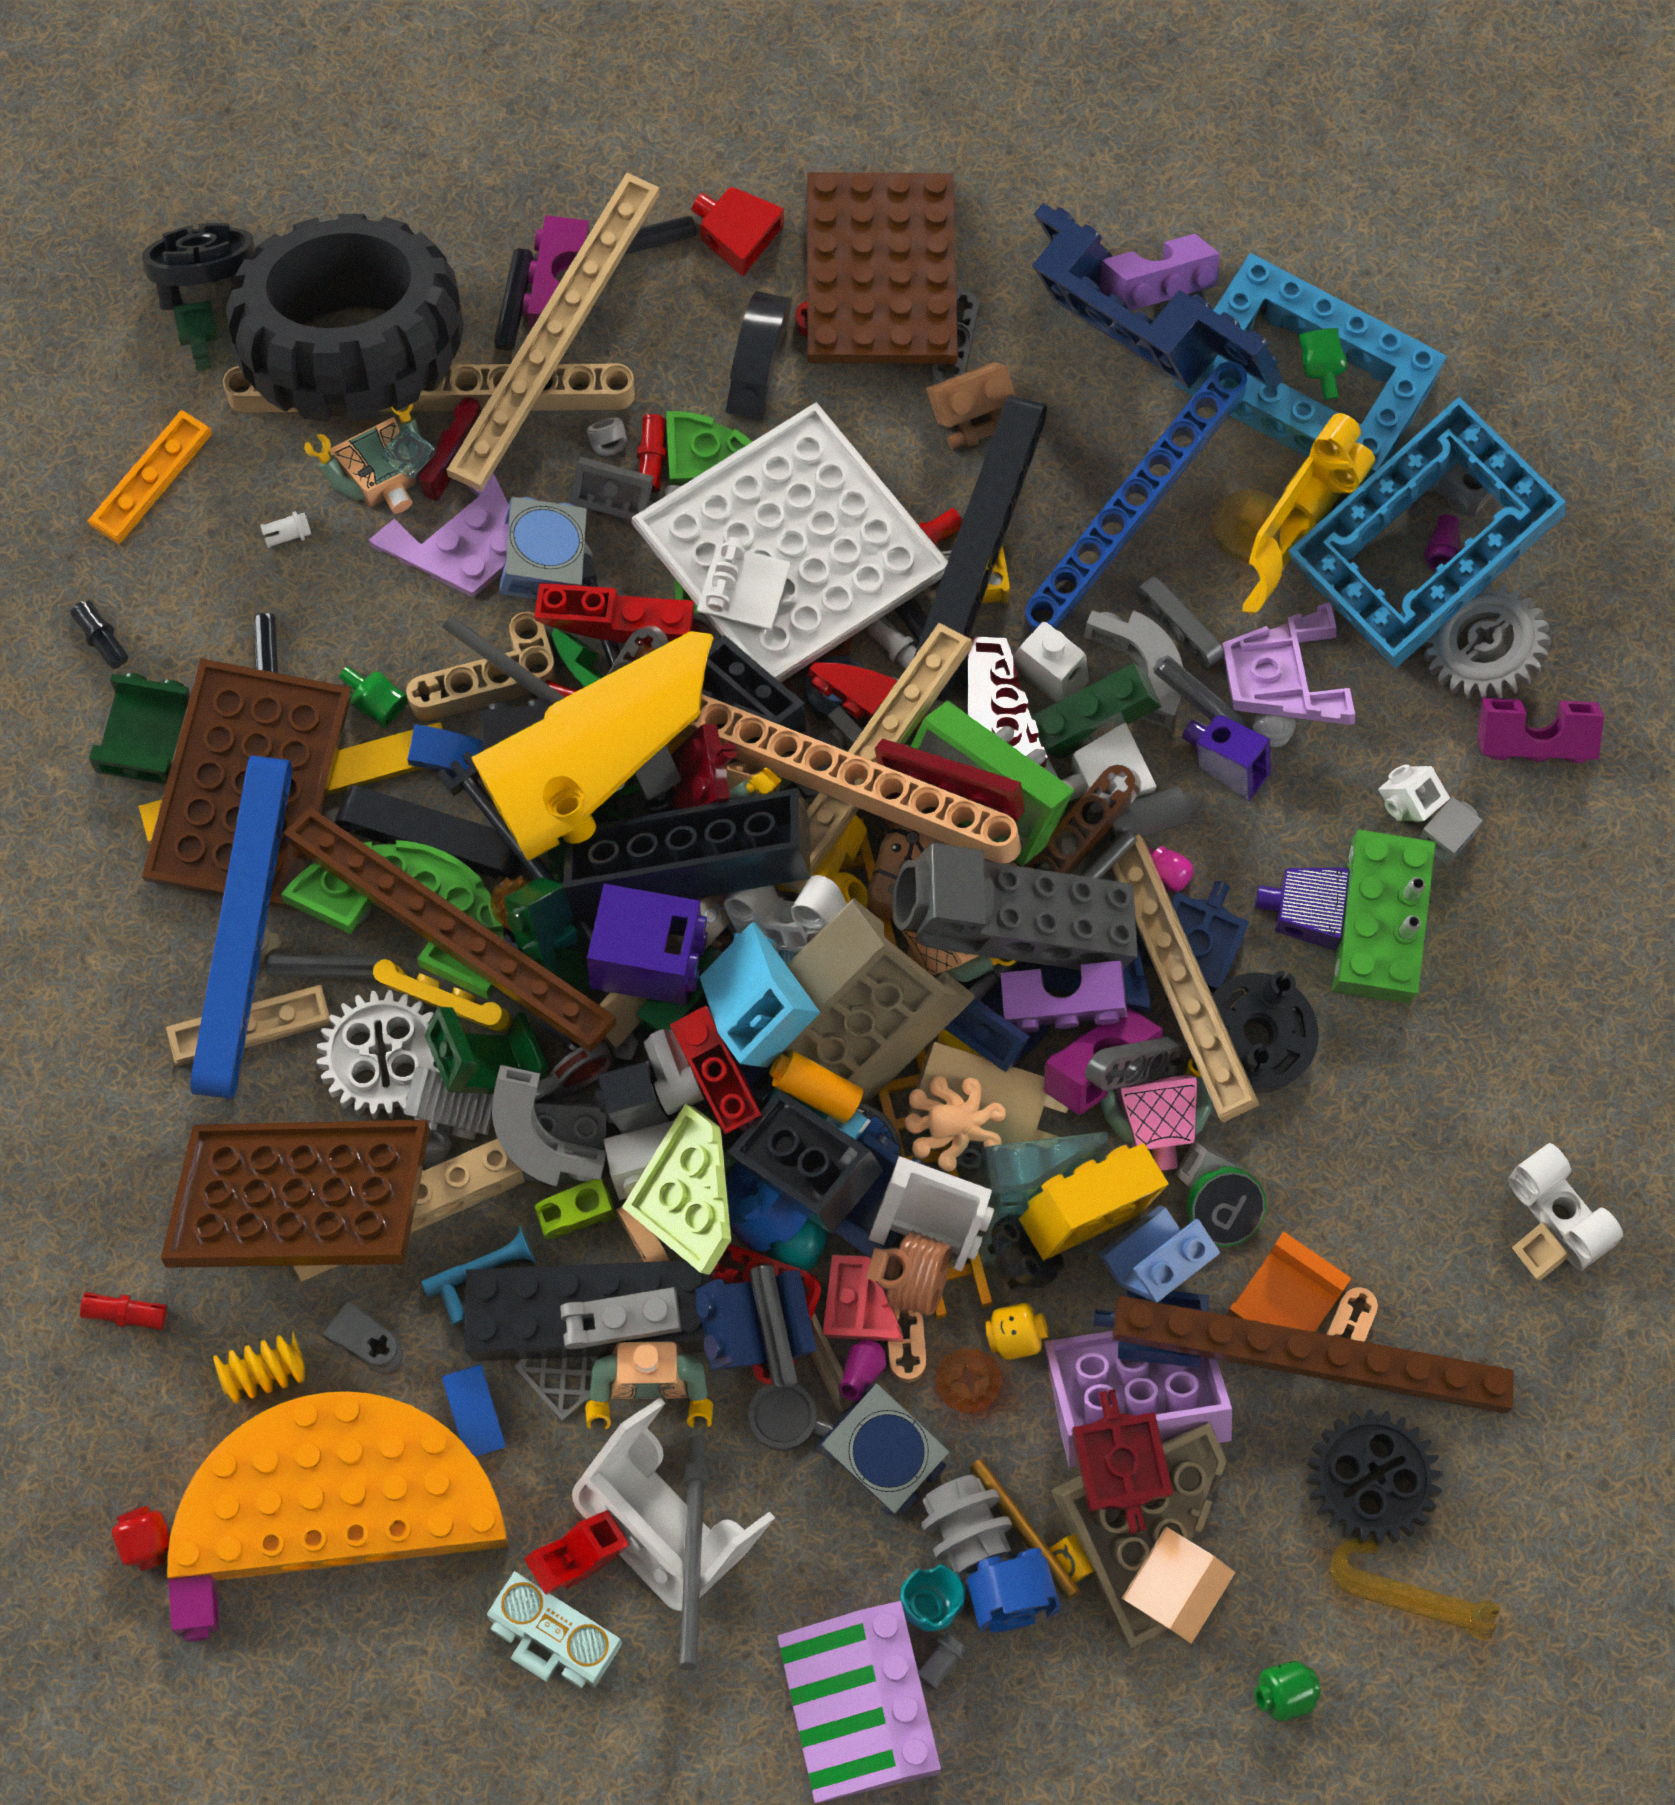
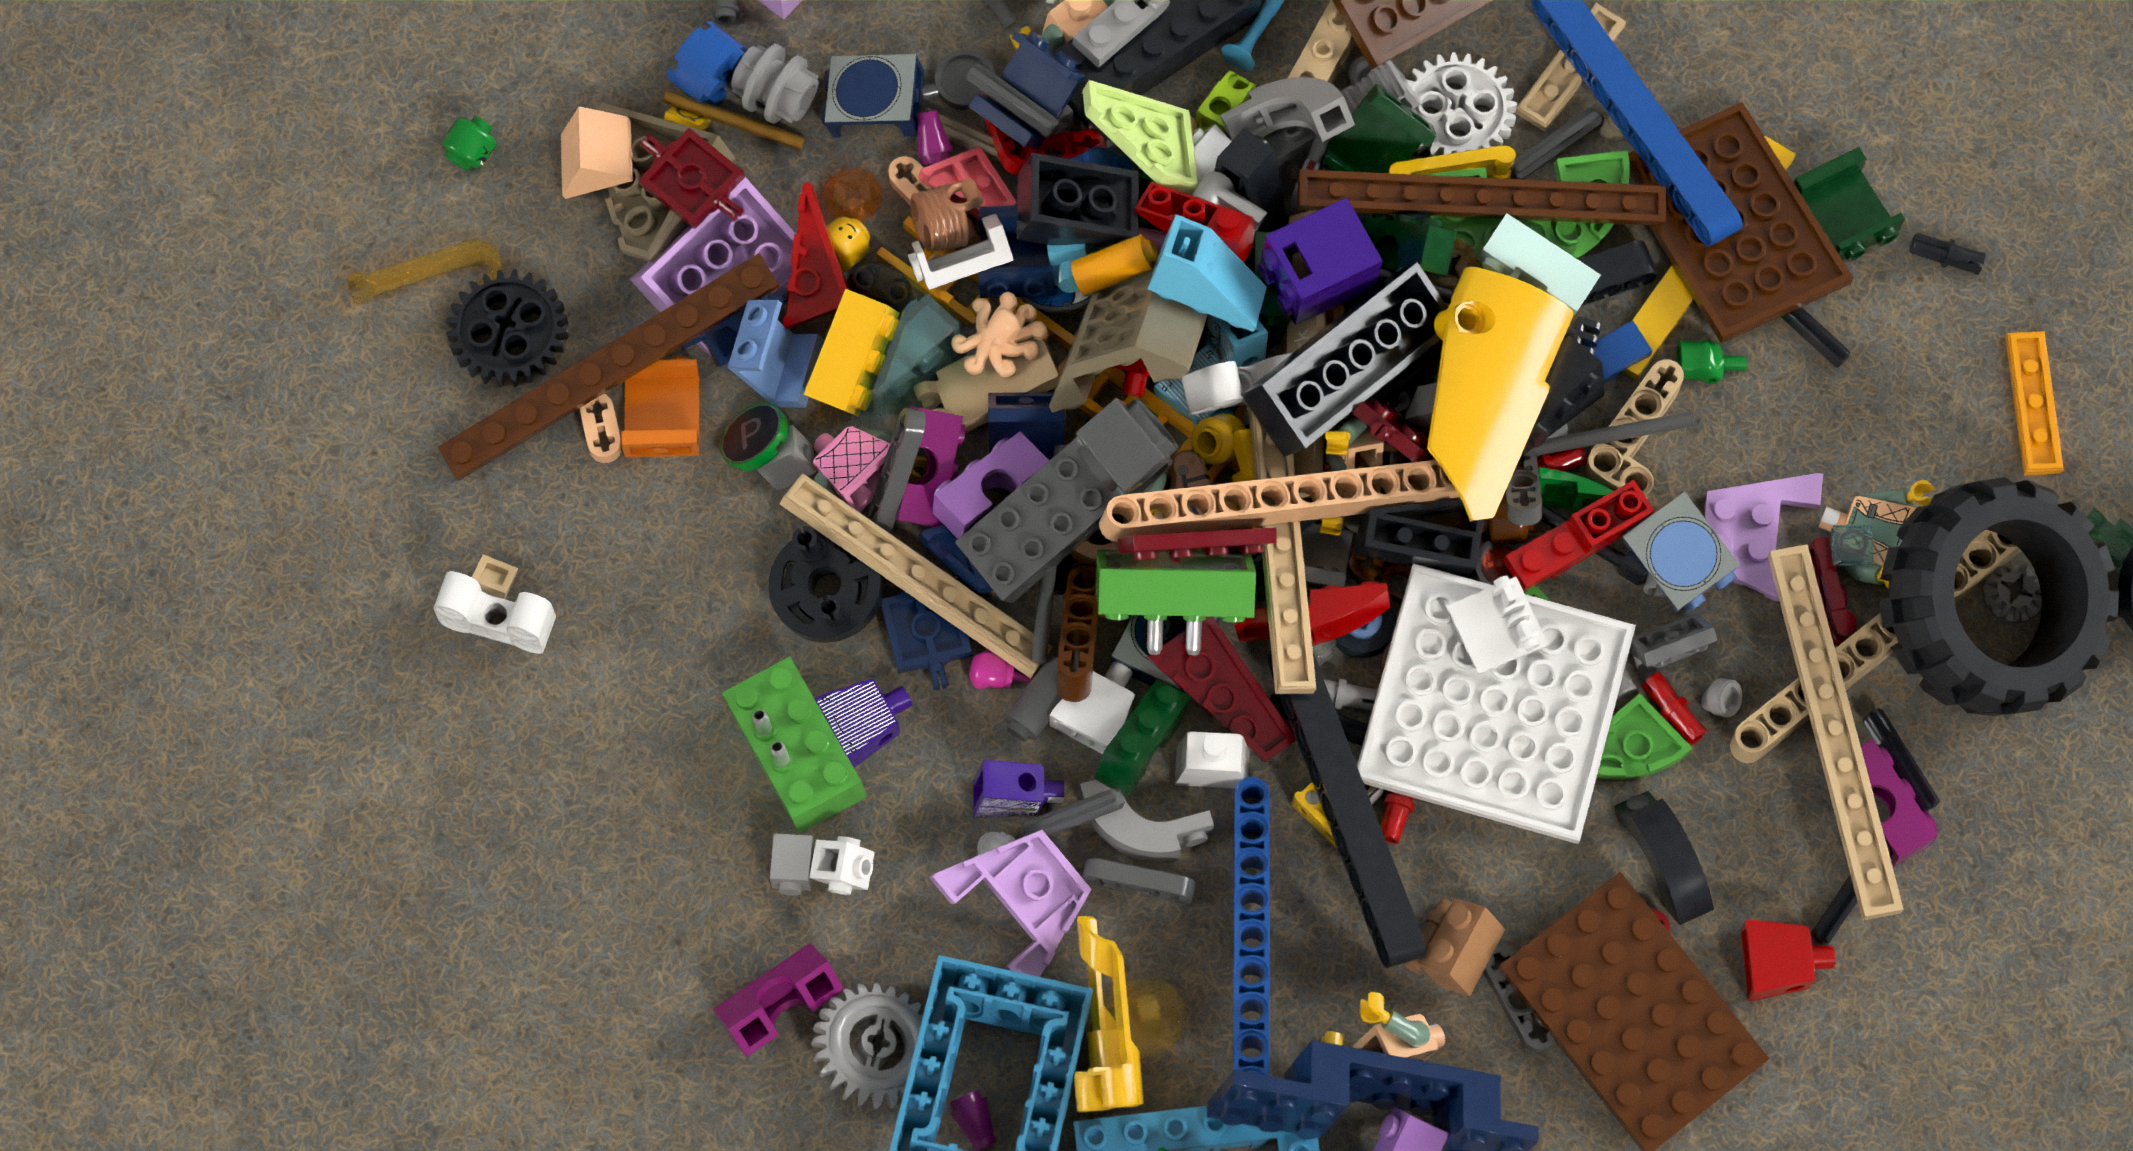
camera: 145 degrees right, 0 degrees up
(289, 529) = (1893, 435): white pin -> none
(446, 831) = (1535, 260): none -> light aqua piece
(932, 1597) = (763, 25): teal hair -> none
(1068, 1302) = (816, 272): none -> red wing
(1092, 356) = (1396, 1034): none -> torso

